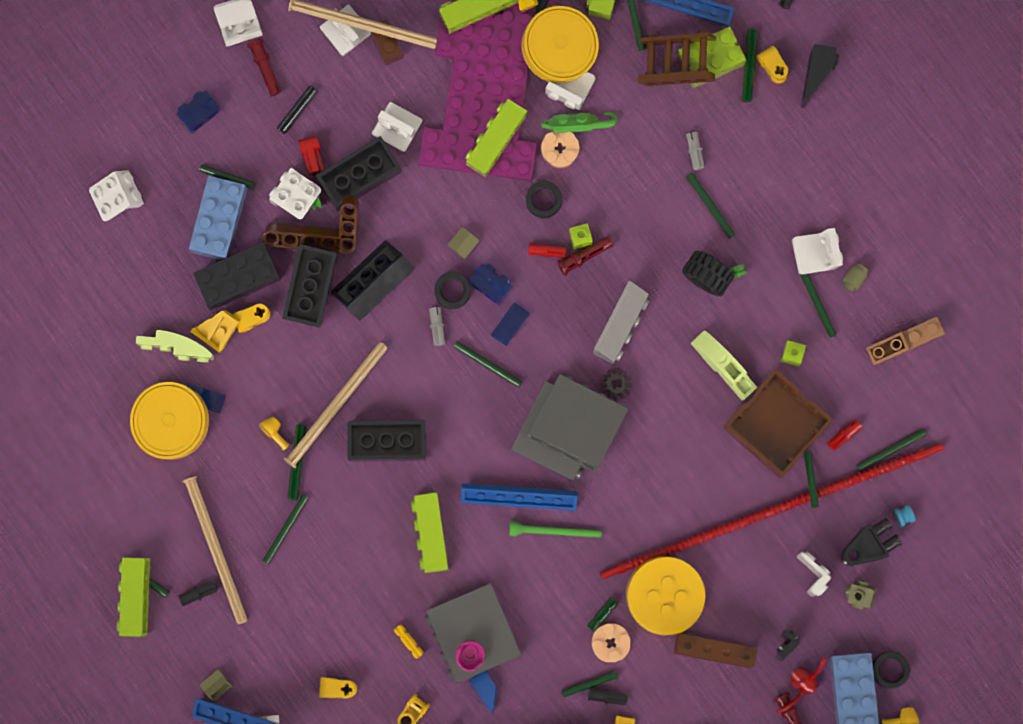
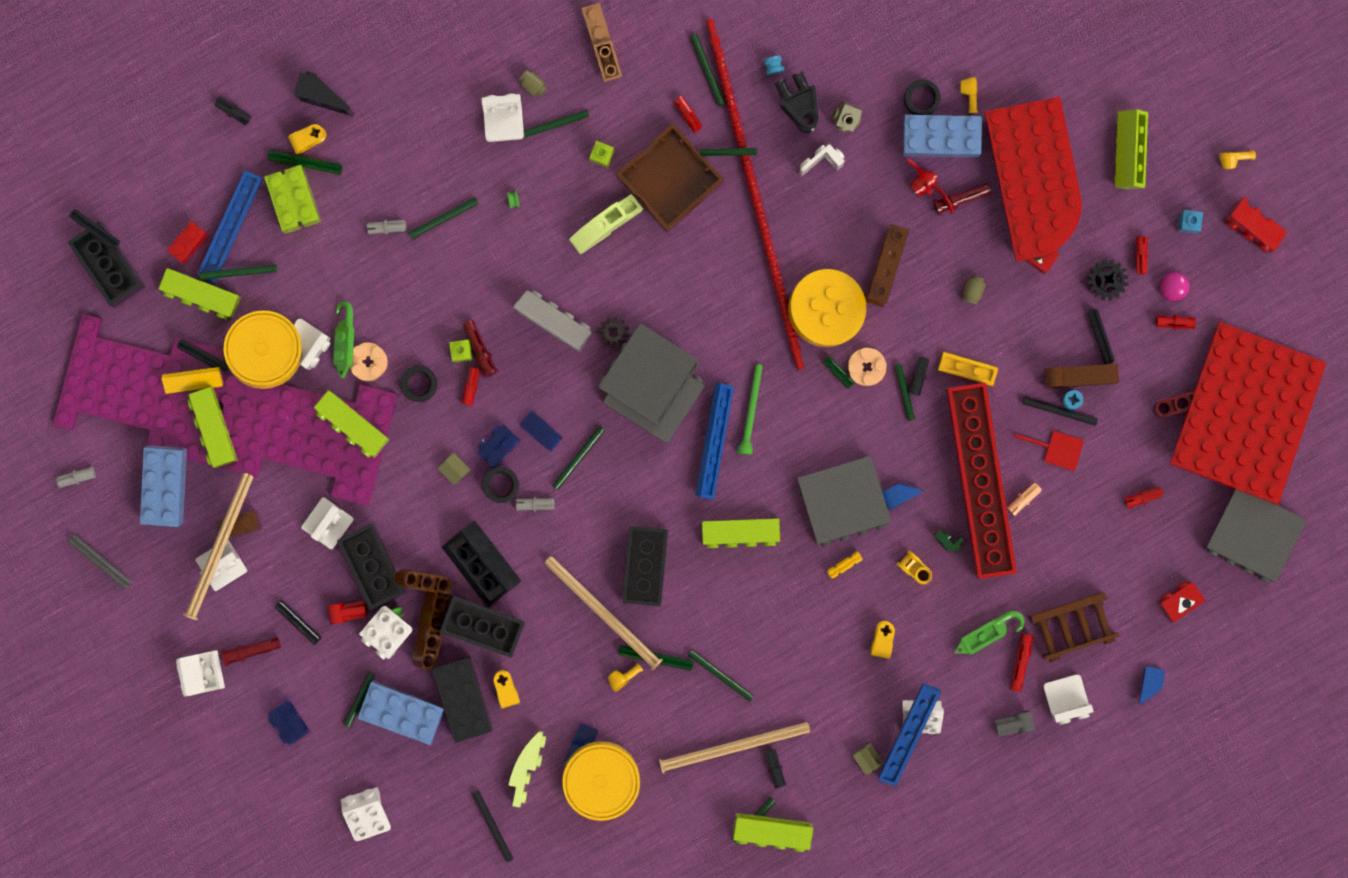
camera: 85 degrees left, 5 degrees up
(115, 320) = (492, 826): none -> black bar
(217, 330) = (514, 724): yellow wing -> none
(469, 655) = (867, 505): dark pink hair -> none
(684, 75) = (309, 227): reddish brown fence -> none
(708, 273) = (513, 228): black tyre -> none
(786, 648) = (892, 196): black bracket -> none

